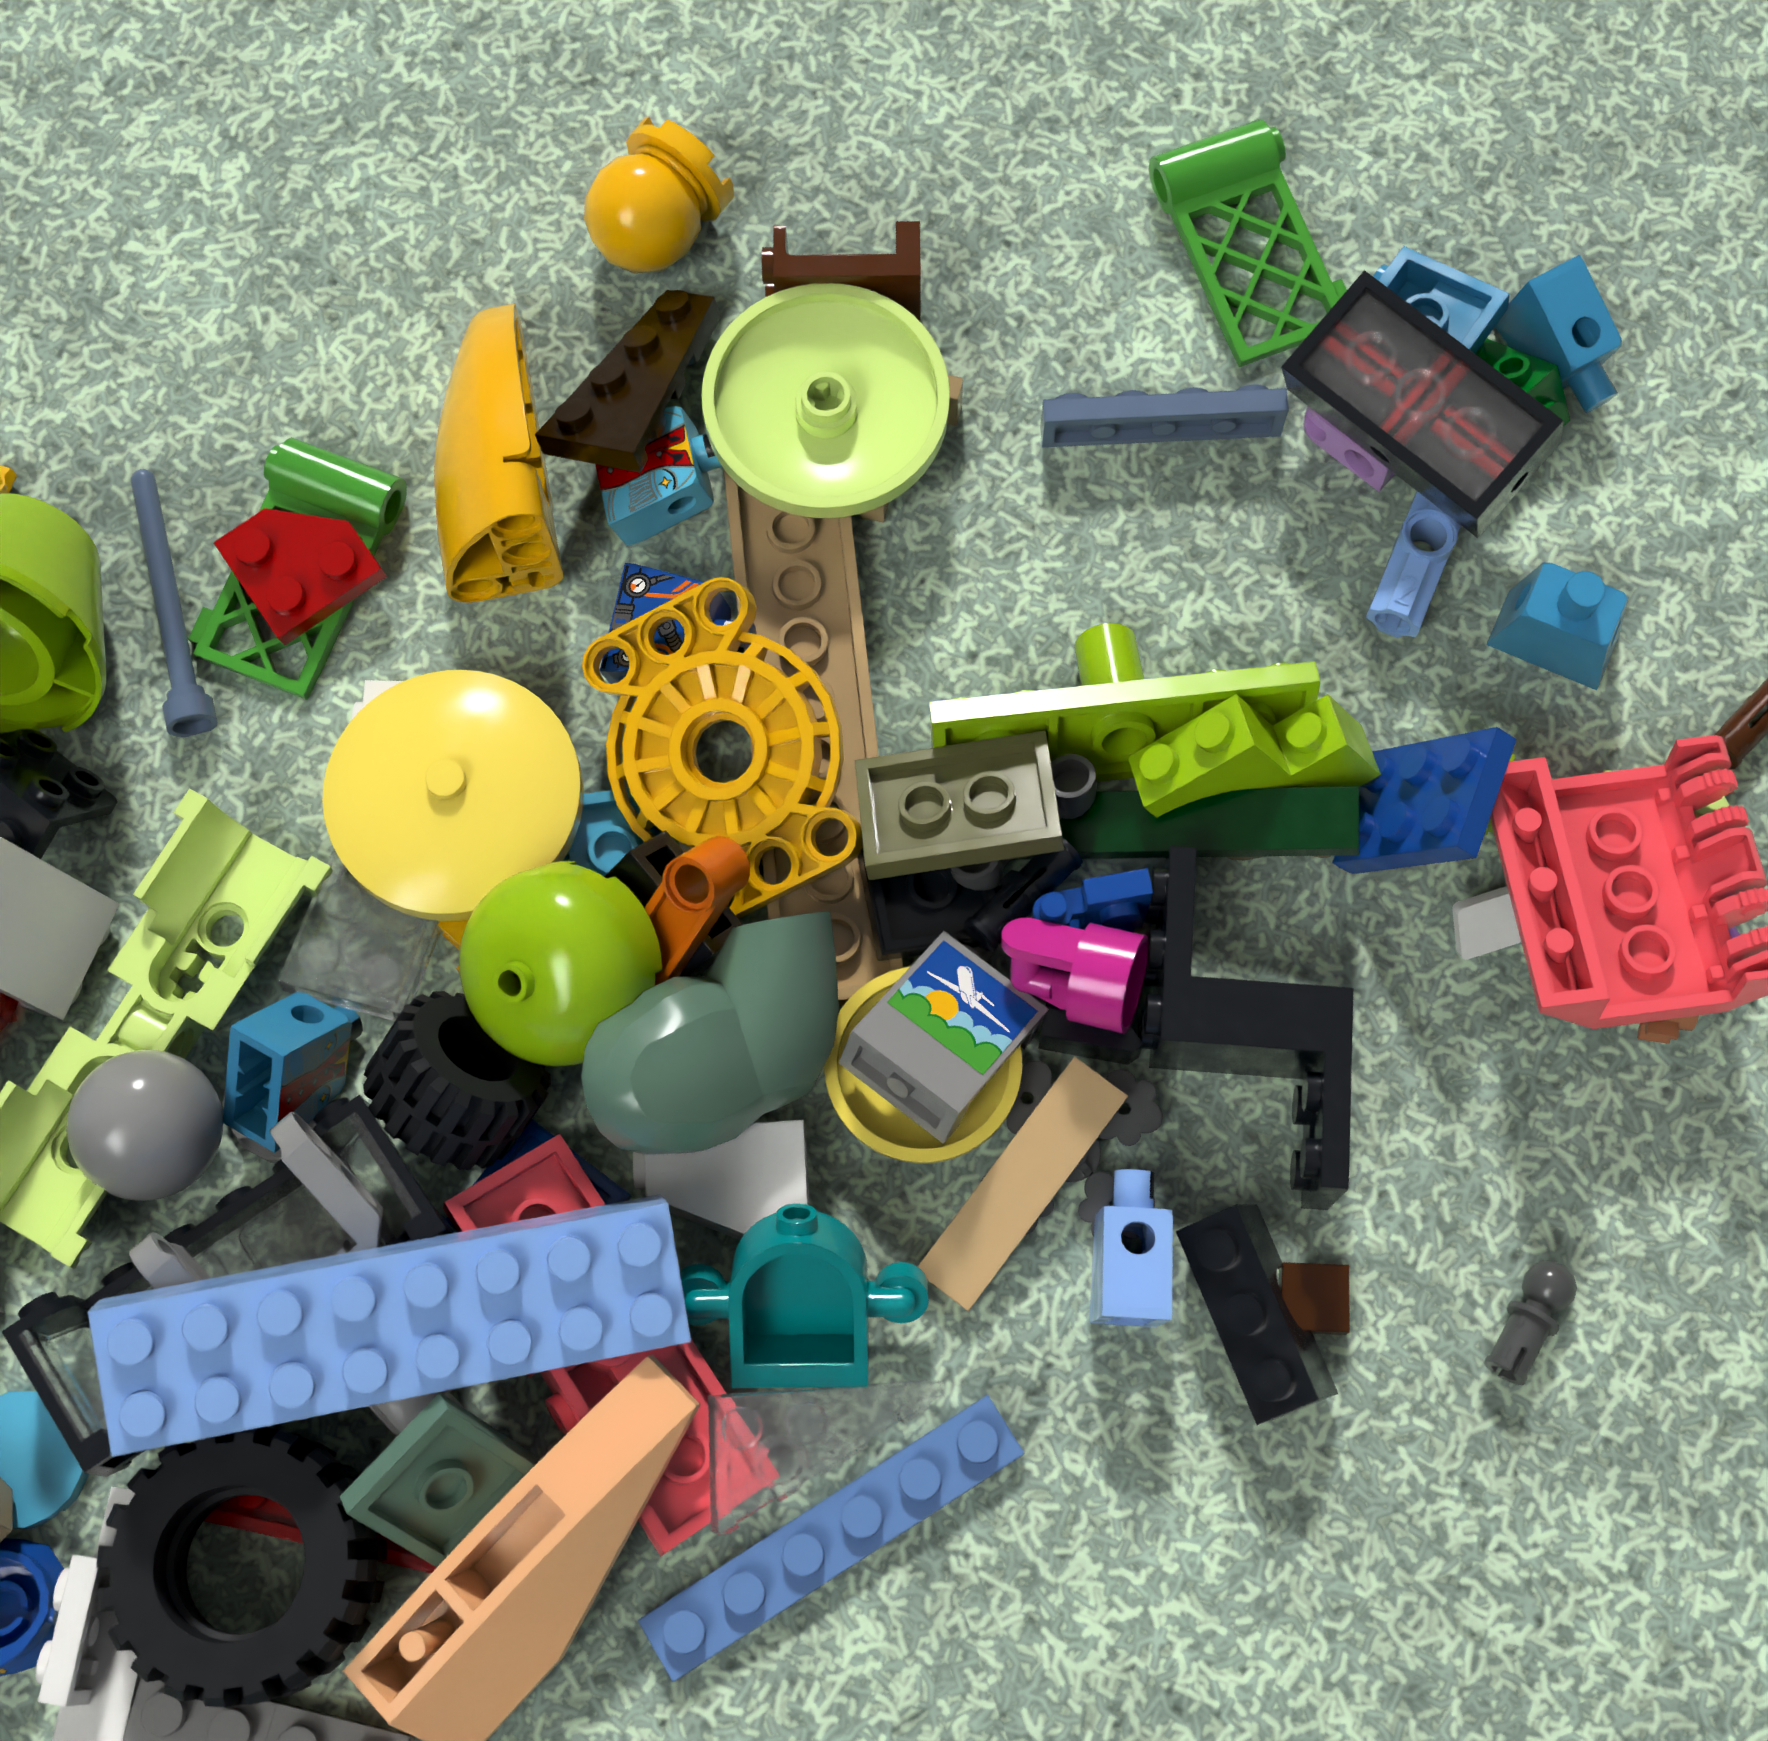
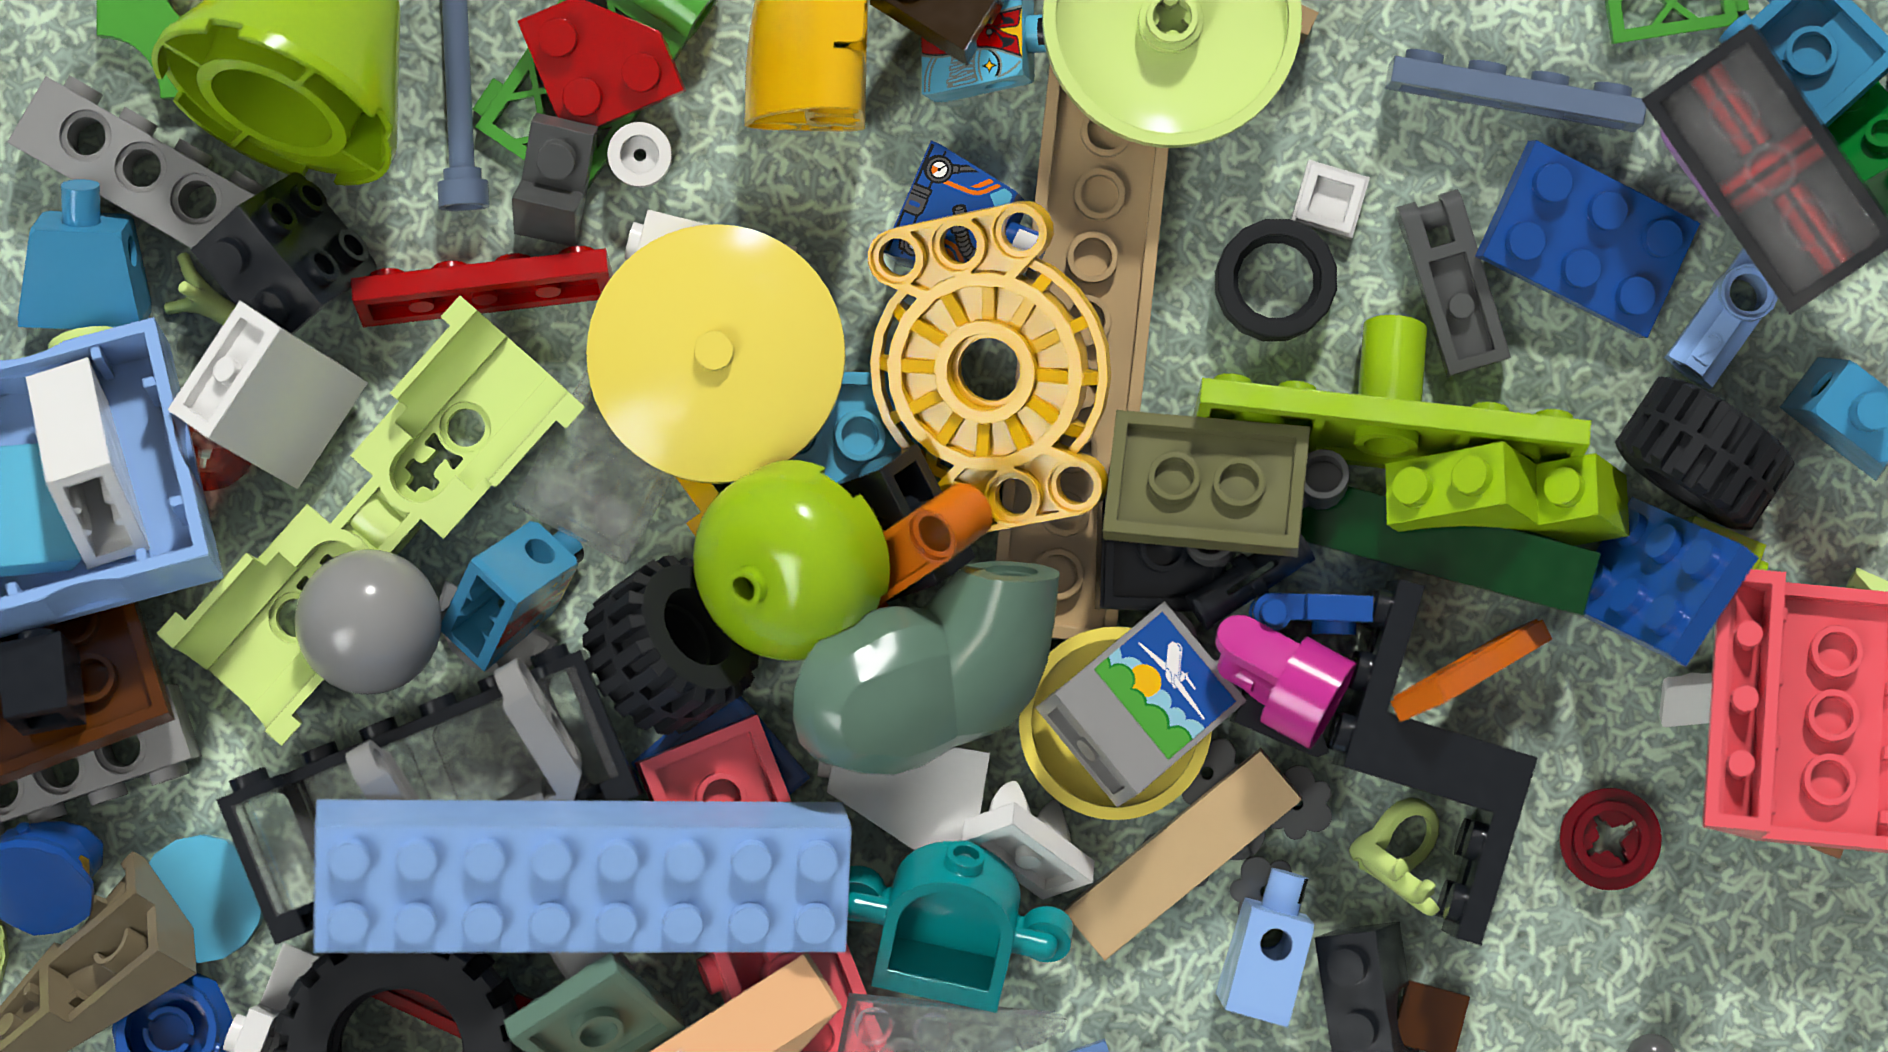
camera: 10 degrees right, 15 degrees up
(236, 785) = (496, 286): none -> red plate
(273, 681) = (554, 180): none -> dark grey slope
(352, 640) = (636, 138): none -> white tile
(867, 1203) = (1033, 847): none -> white tile
(986, 582) = (1295, 236): none -> black tyre
(1015, 549) = (1330, 199): none -> white tile
(1151, 597) = (1453, 285): none -> dark grey plate
(1240, 1148) = (1393, 872): none -> yellowish green piece
(1260, 927) = (1470, 669): none -> orange tile
(1264, 528) = (1587, 239): none -> blue plate
(1429, 675) = (1704, 453): none -> black tyre
(1474, 1077) = (1639, 845): none -> dark red gear

